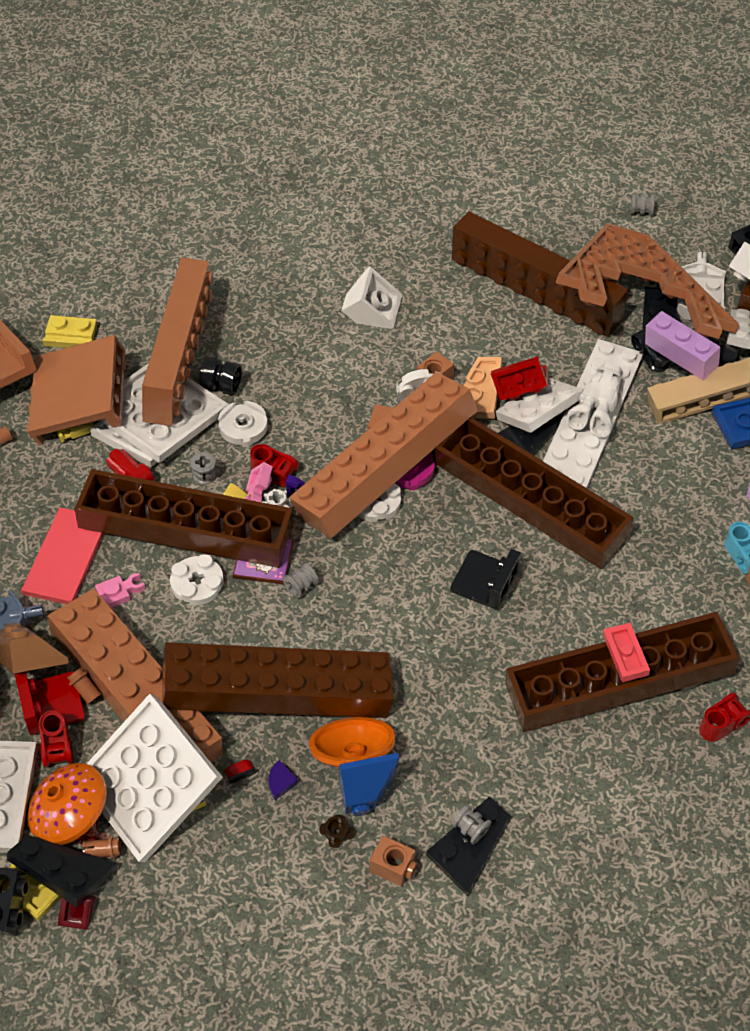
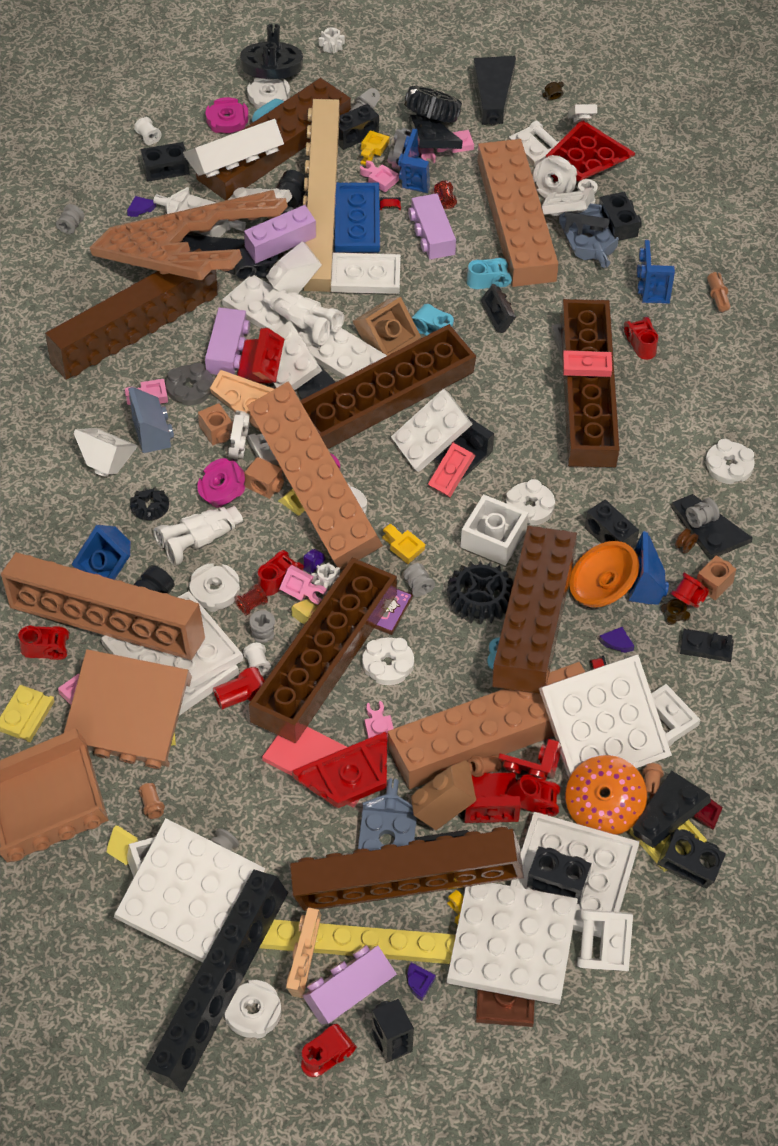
camera: 75 degrees left, 0 degrees up
(47, 573) = (348, 772): none -> red wing
(84, 720) = (548, 757): none -> red bracket
(143, 320) = (43, 642): none -> red piece
(168, 473) = (256, 657): none -> white bush
(195, 851) = (674, 713): none -> white plate
(234, 453) = (251, 599): none -> clear red bush
(251, 334) = (104, 552): none -> blue slope
(299, 627) = (479, 598): none -> black gear
(300, 873) = (707, 645): none -> black plate
(302, 393) = (196, 530): none -> white piece
(317, 357) = (154, 510): none -> black gear
(342, 559) = (403, 545): none -> yellow plate
(356, 832) = (690, 591): none -> red piece
(361, 394) = (231, 487): none -> dark pink plate
(381, 625) = (494, 529): none -> white brick
(413, 319) = (150, 421): none -> sand blue slope
(424, 739) = (608, 524): none -> black brick
(437, 821) = (686, 540): none -> reddish brown bush
(439, 644) = (536, 492): none -> white plate
(448, 573) = (451, 470): none -> coral plate
(455, 318) = (153, 387): none -> bright pink plate
(484, 333) = (189, 373): none -> flat silver plate
(490, 541) = (431, 430): none -> white plate
(555, 351) = (227, 341): none -> lavender brick
(584, 863) = (728, 450): none -> white plate
(622, 477) = (387, 326): none -> medium nougat slope
(648, 373) = (294, 269): none -> white slope
(648, 516) = (430, 319): none -> medium azure piece
(688, 249) = (139, 206): none -> dark purple tile
(692, 443) = (365, 273): none -> white plate
(702, 566) = (498, 308): none -> black plate

